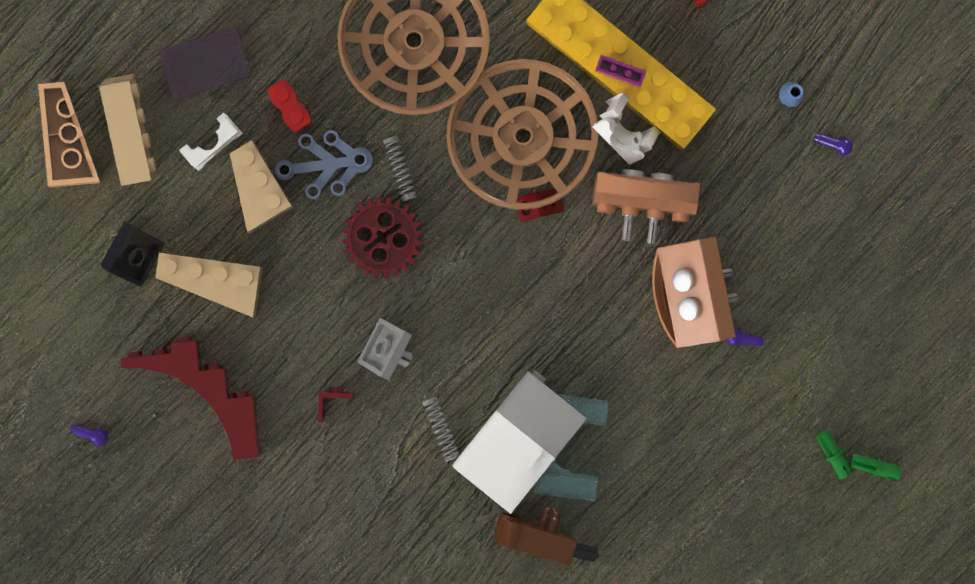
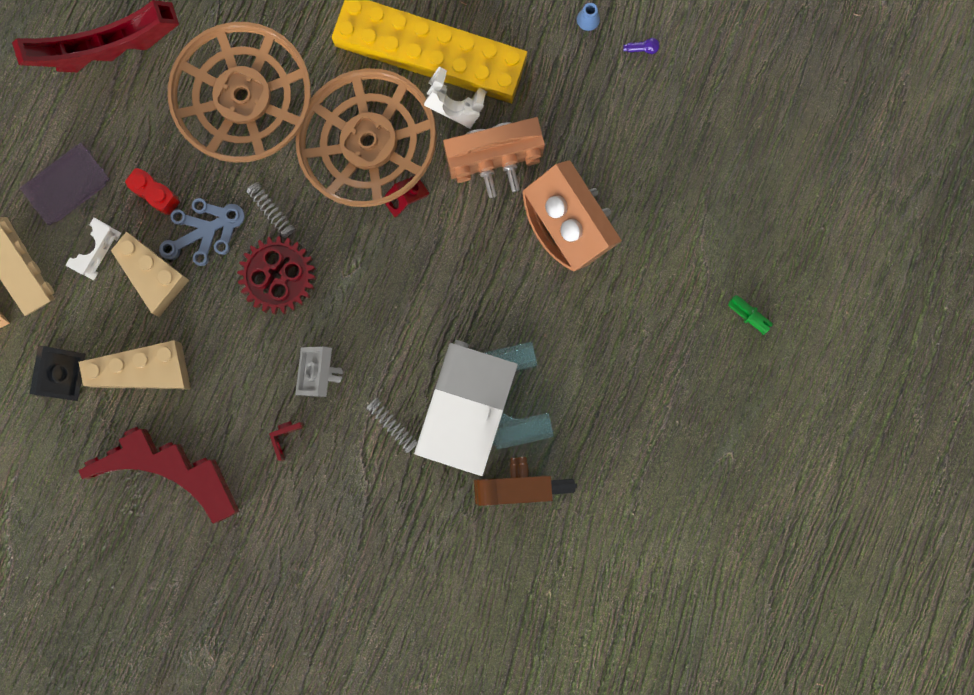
camera: 20 degrees left, 5 degrees down
(97, 436) = (85, 550): dark purple piece -> none
(620, 71) = (429, 47): magenta piece -> none
(745, 339) = (626, 244): dark purple piece -> none
(876, 467) = (792, 311): green axle -> none

